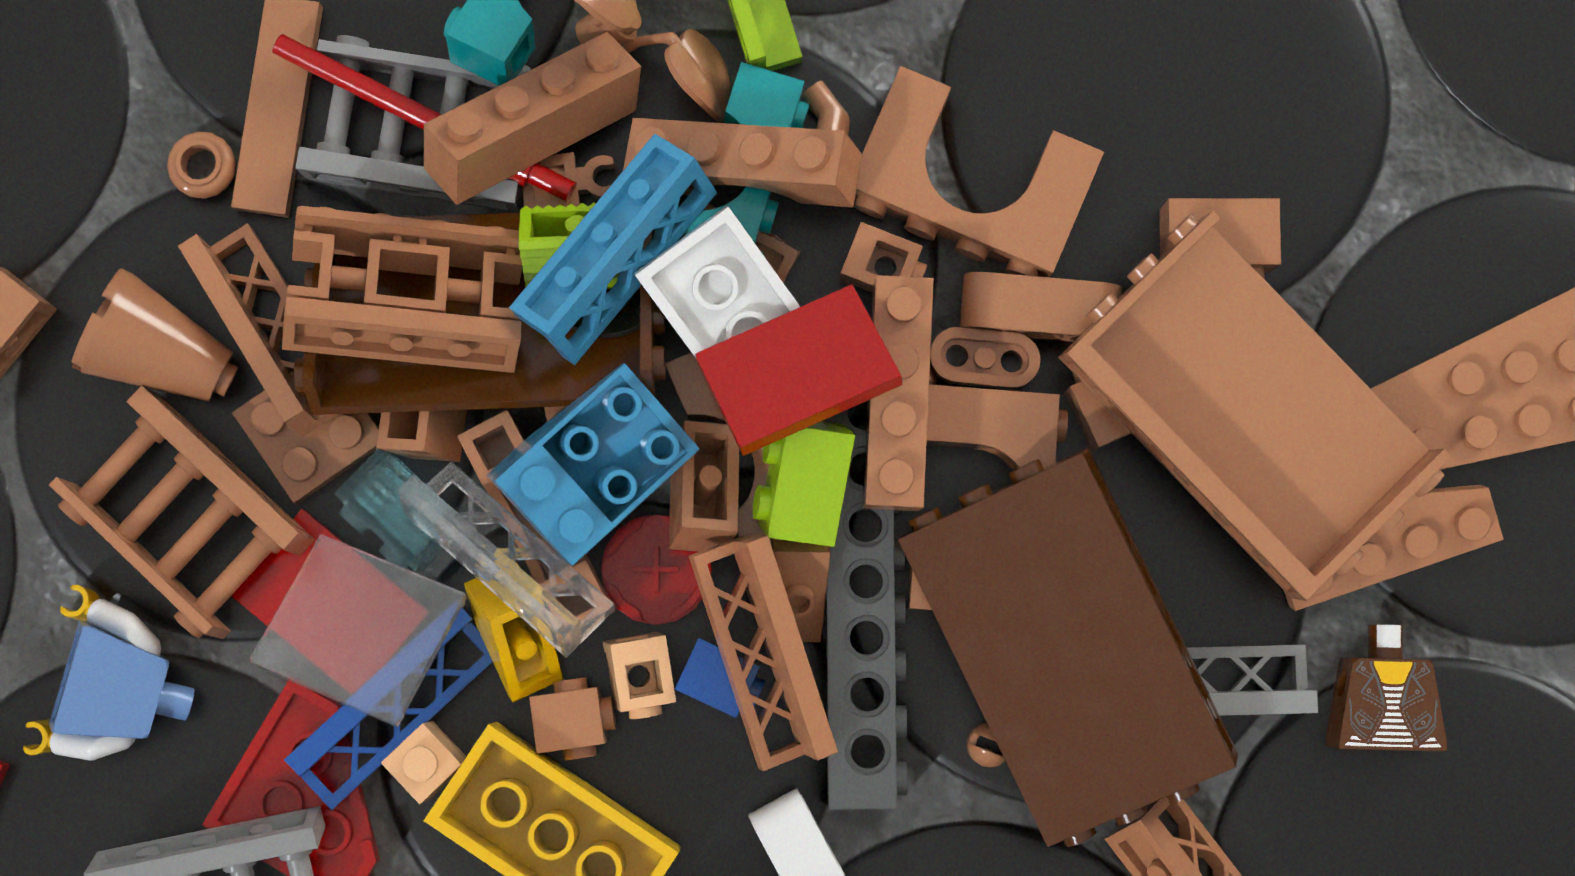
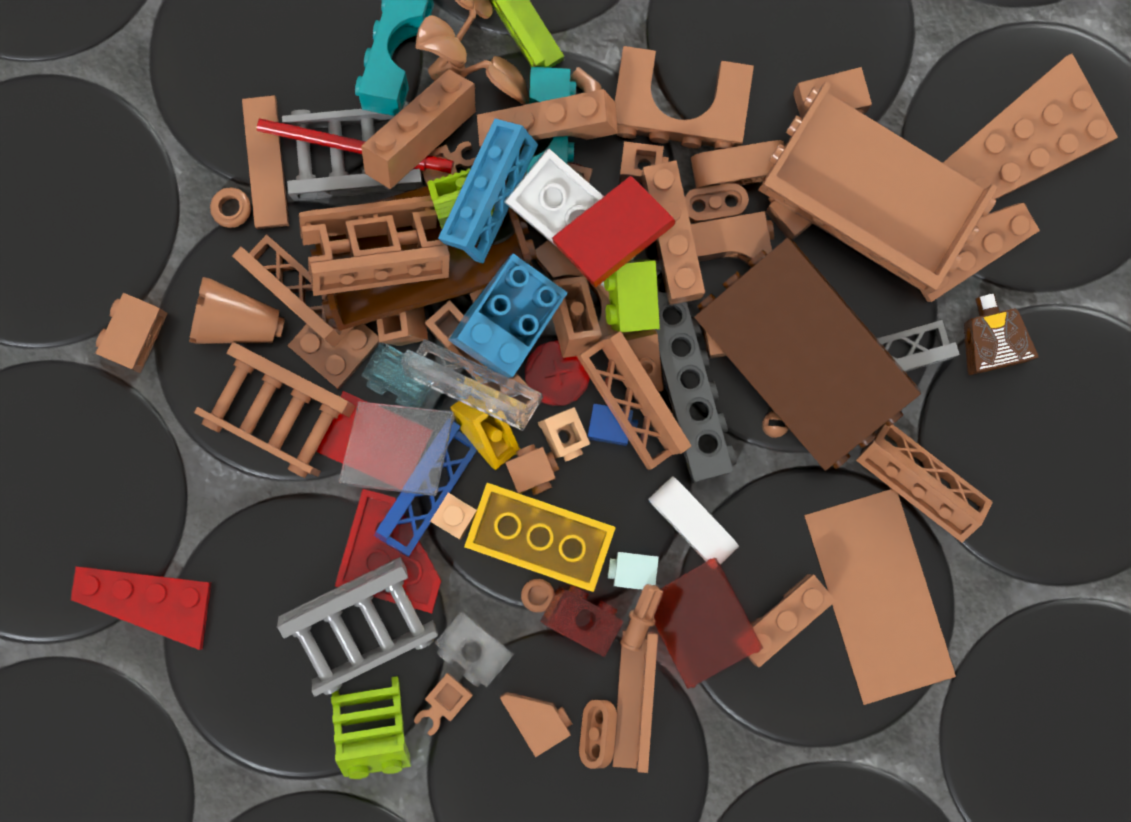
camera: 15 degrees left, 0 degrees up
(108, 685) = (259, 519): medium blue torso -> none

